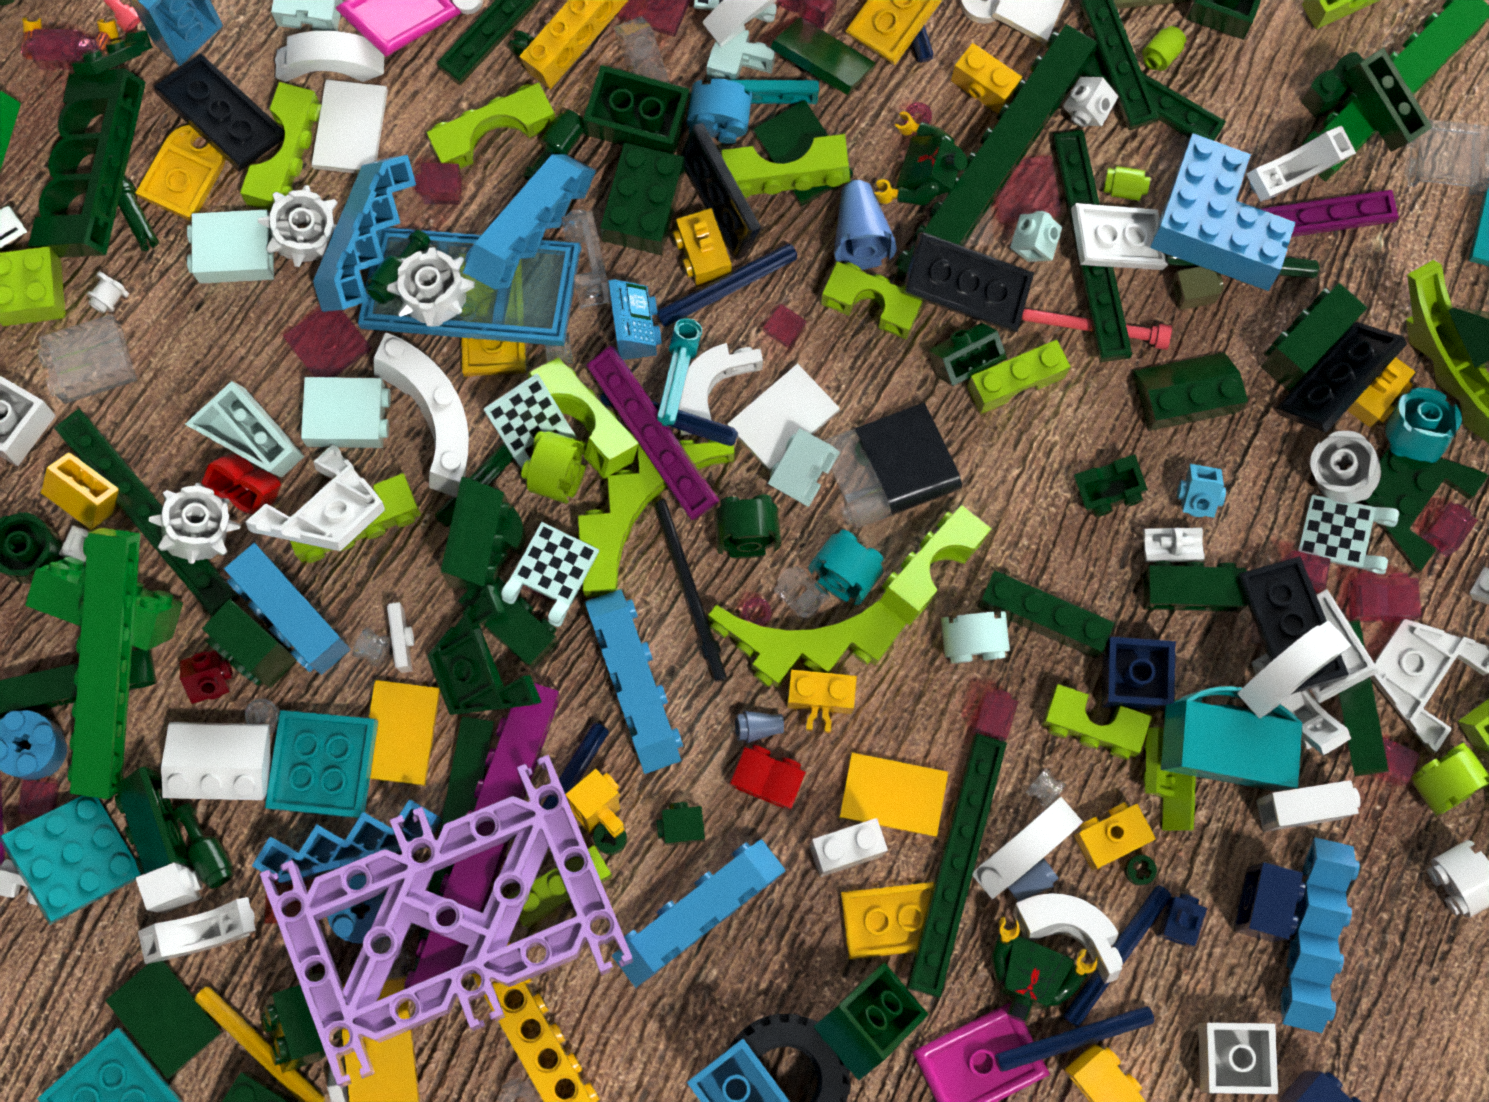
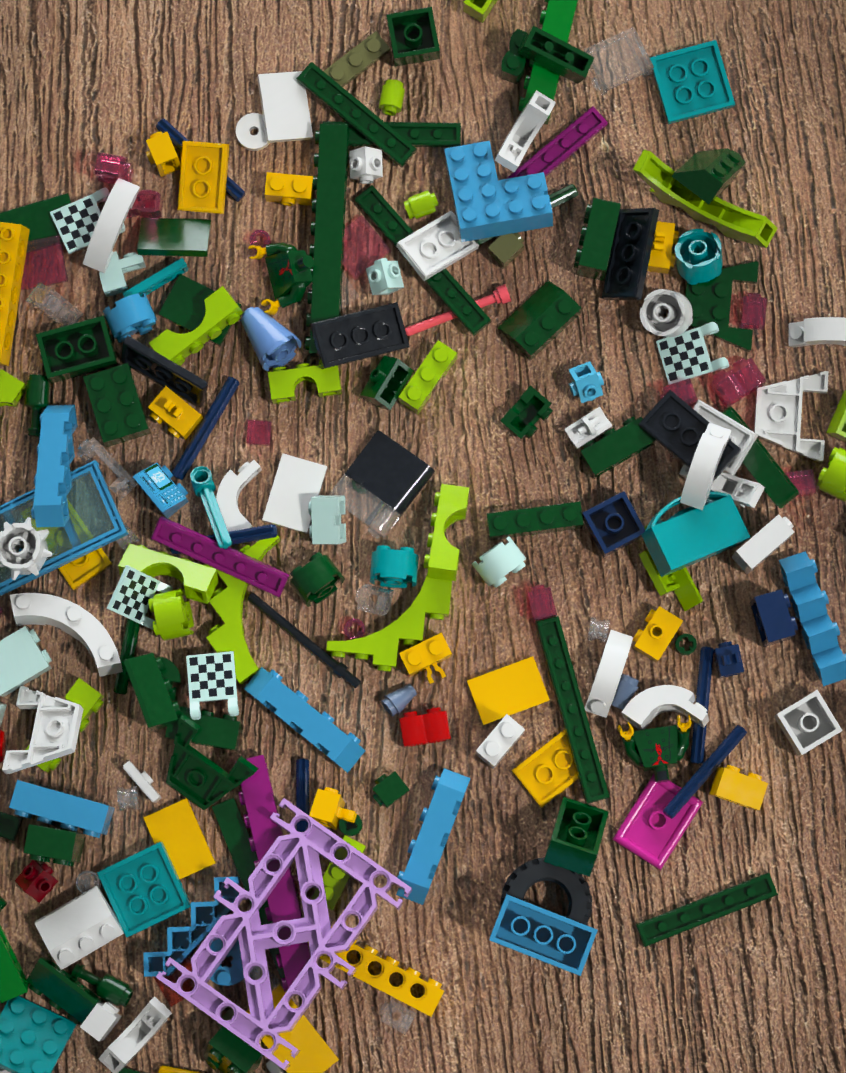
camera: 25 degrees left, 5 degrees up
(1068, 716) = (585, 576): lime arch -> none

